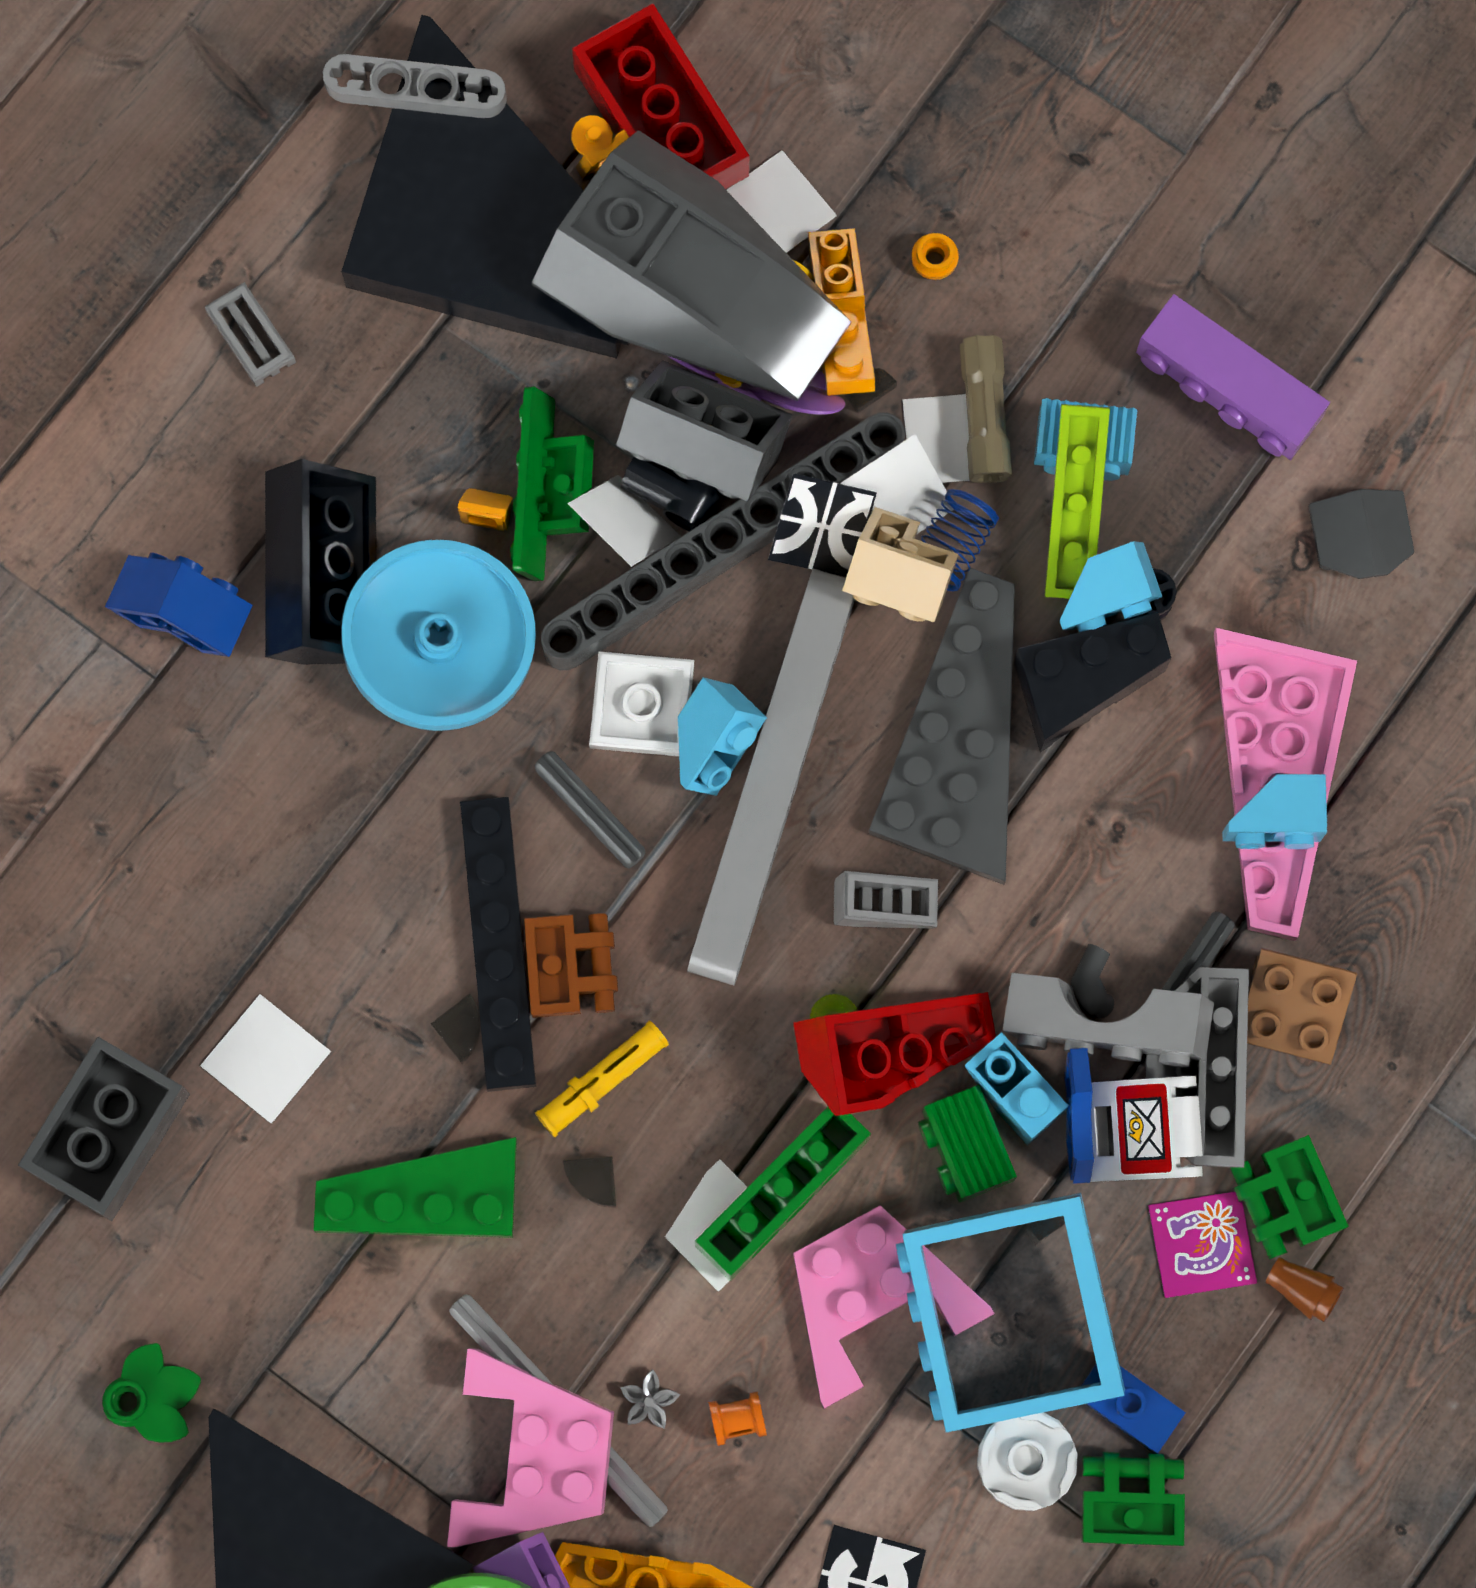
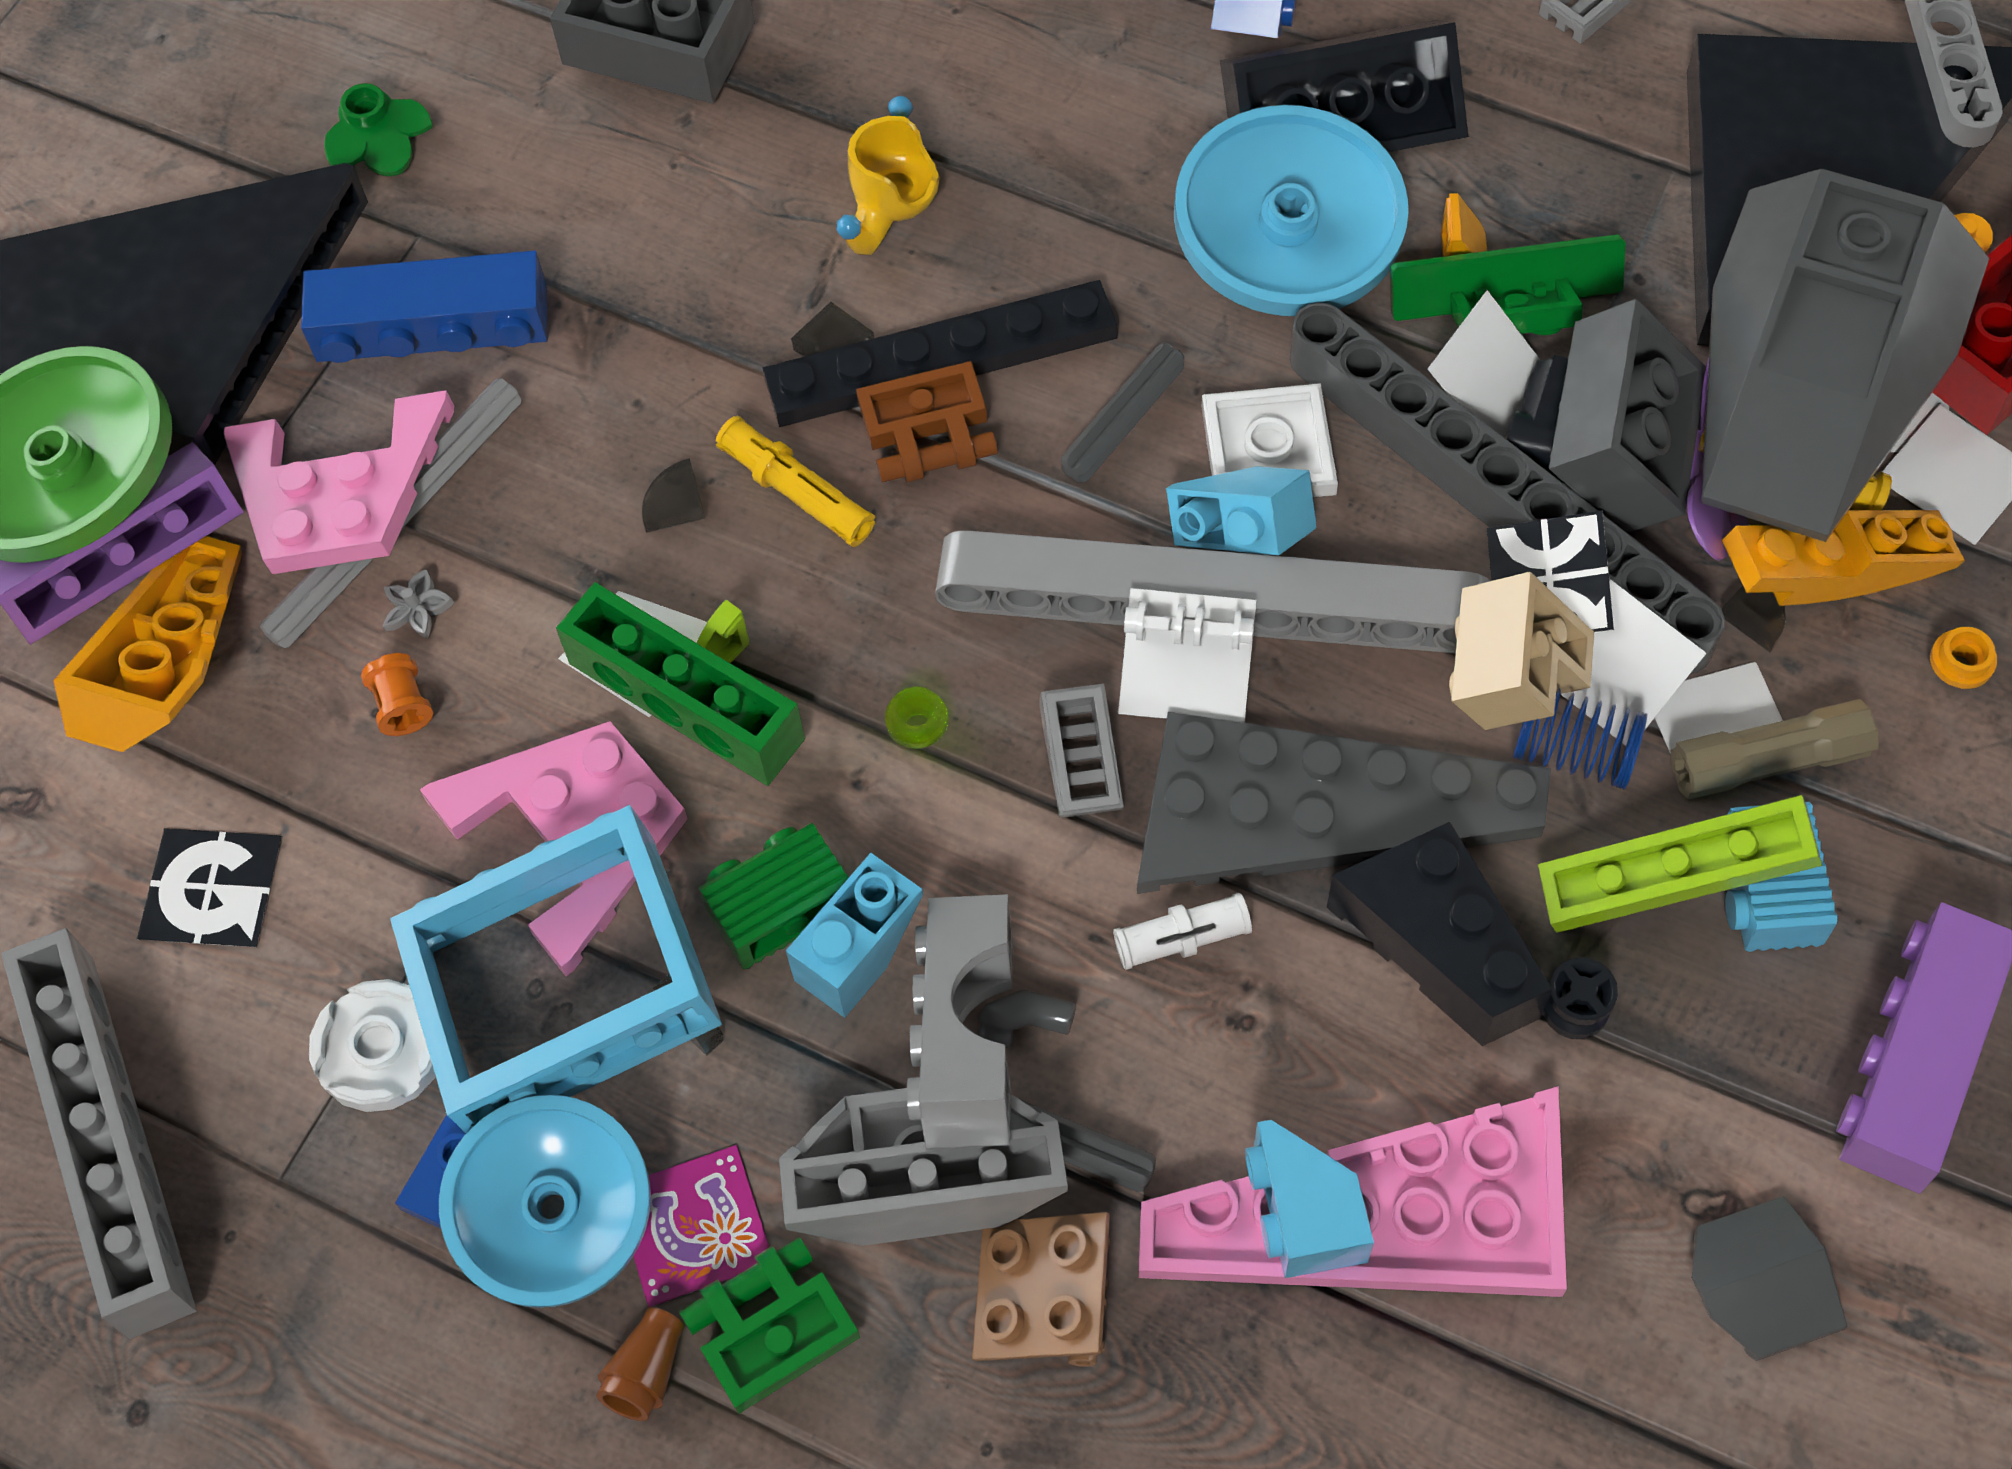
camera: 85 degrees right, 15 degrees down
(265, 1058) = (766, 167): white sticker -> none
(325, 952) = (888, 177): none -> yellow piece
(365, 1362) = (424, 306): none -> blue brick
(435, 1195) = (631, 346): green wing -> none
(737, 1153) = (725, 632): none -> lime tile
(830, 804) = (1186, 655): none -> white hinge
(880, 1053) = (873, 762): red wedge -> none
(1047, 857) = (1182, 931): none -> white pin
(1078, 1115) = (845, 1003): blue tile -> none
(1110, 585) = (1572, 921): medium azure slope -> none
(1133, 1517) = (307, 1183): green plate -> none
(1148, 1129) = (820, 1093): container -> none
(1216, 1331) = (507, 1171): none -> medium azure dish

